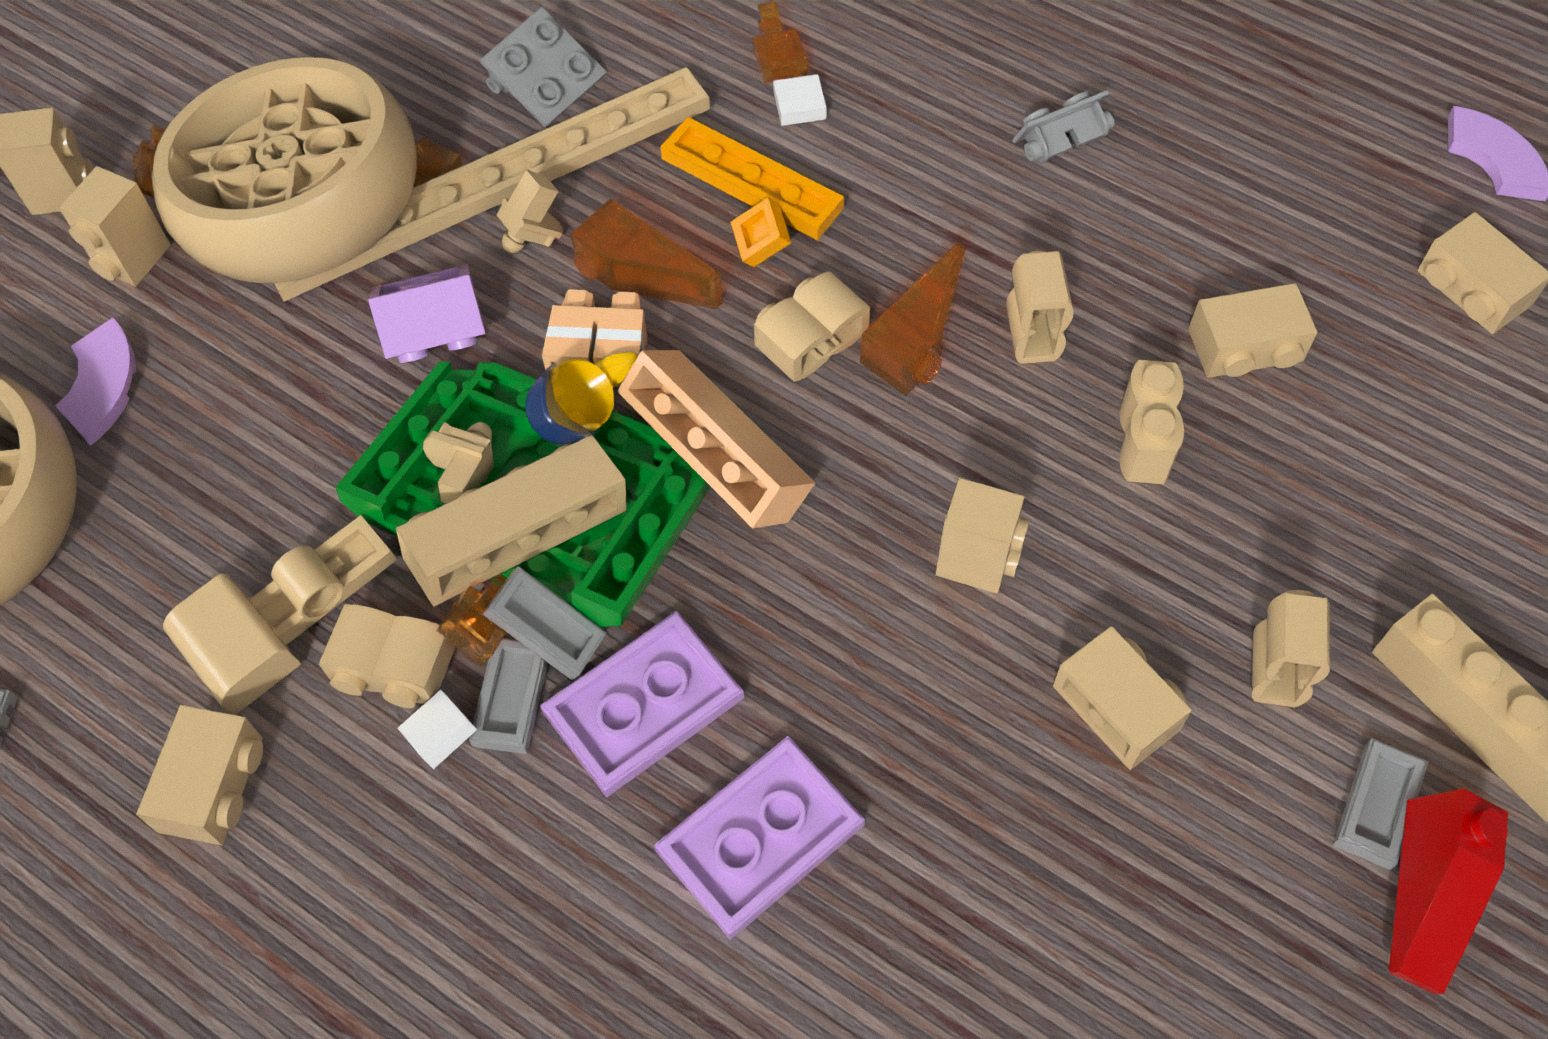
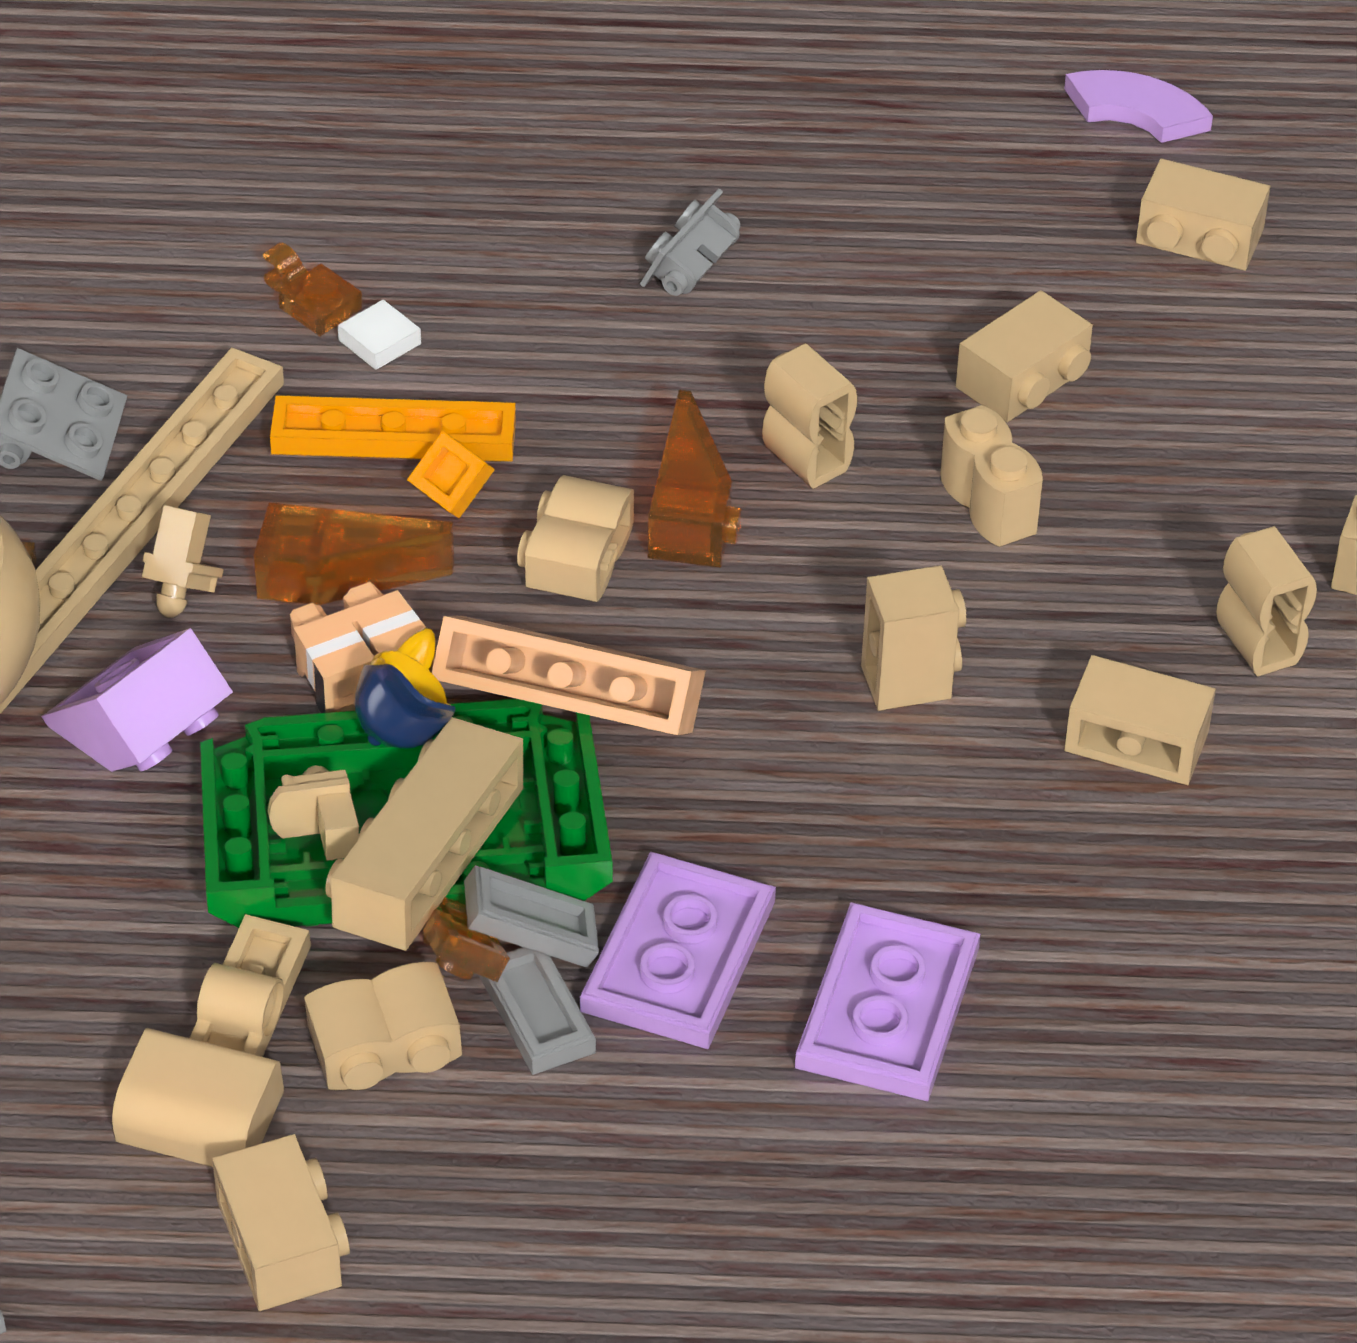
camera: 35 degrees left, 15 degrees down
(437, 729) = (492, 1064): white tile -> none

